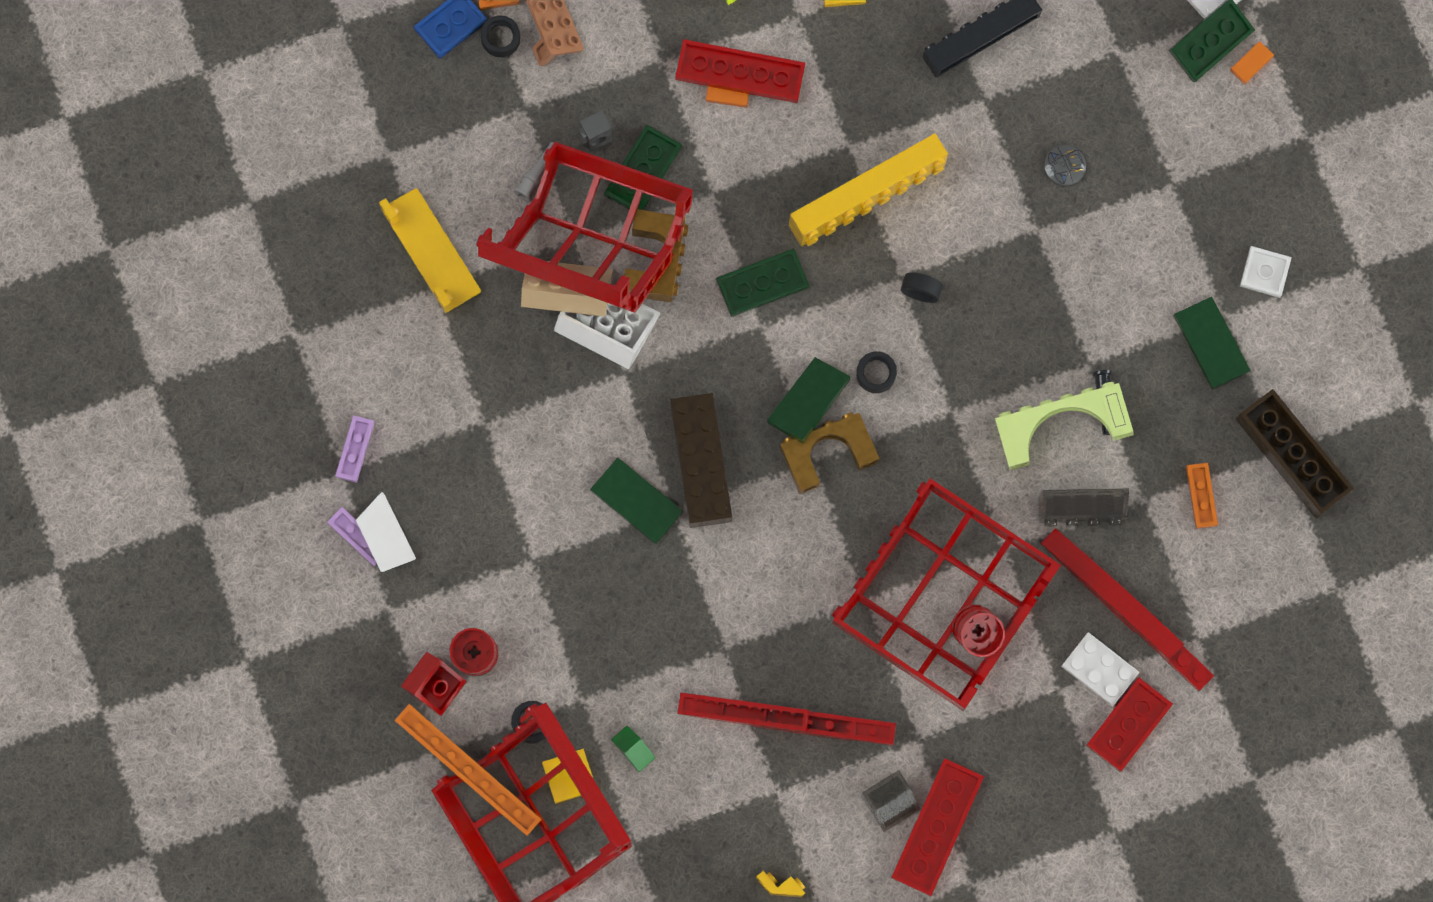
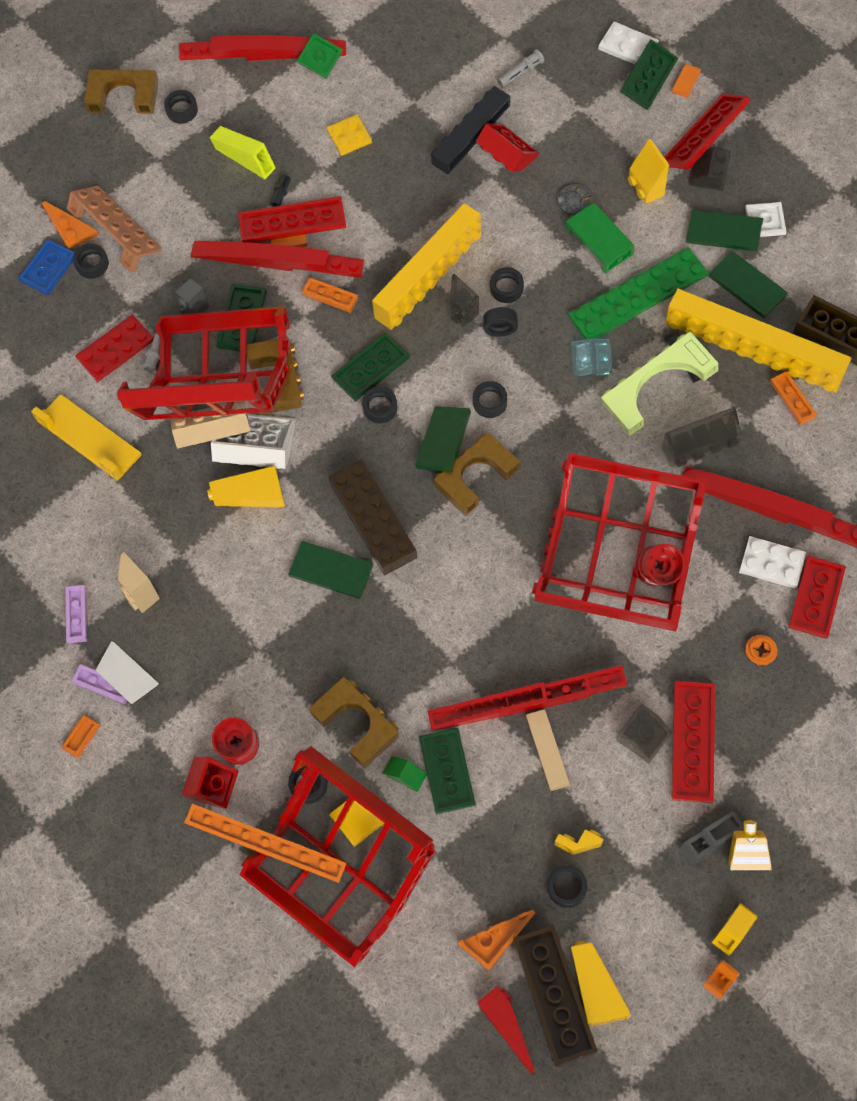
camera: 10 degrees left, 10 degrees down
(318, 583) = (80, 736): none -> orange tile
(426, 446) = (135, 585): none -> tan slope
(493, 153) = (114, 348): none -> red plate
(581, 378) = (249, 489): none -> yellow slope
(602, 645) = (346, 696): none -> pearl gold arch
(677, 762) = (447, 771): none -> dark green tile
(708, 112) = (278, 257): none -> red slope
(740, 28) = (280, 191): none -> black axle
(749, 180) = (330, 295): none -> orange plate
(751, 317) = (379, 417): none -> black tyre
(786, 779) = (547, 750): none -> tan tile
(889, 248) = (463, 302): none -> clear smoke slope
(950, 227) = (506, 297): none -> black tyre
(1005, 364) = (591, 357): none -> clear light blue slope
(1014, 71) = (506, 147): none -> red slope
(1057, 757) = (769, 646): none -> orange gear
(1072, 224) = (600, 236): none -> green panel
(1087, 308) = (638, 294): none -> green plate
(1155, 171) = (649, 173): none -> yellow slope
(1189, 417) = (757, 340): none -> yellow brick
(1213, 268) = (724, 230): none -> dark green tile
(1229, 187) = (711, 169): none -> clear smoke slope
(1243, 139) = (706, 131): none -> red plate

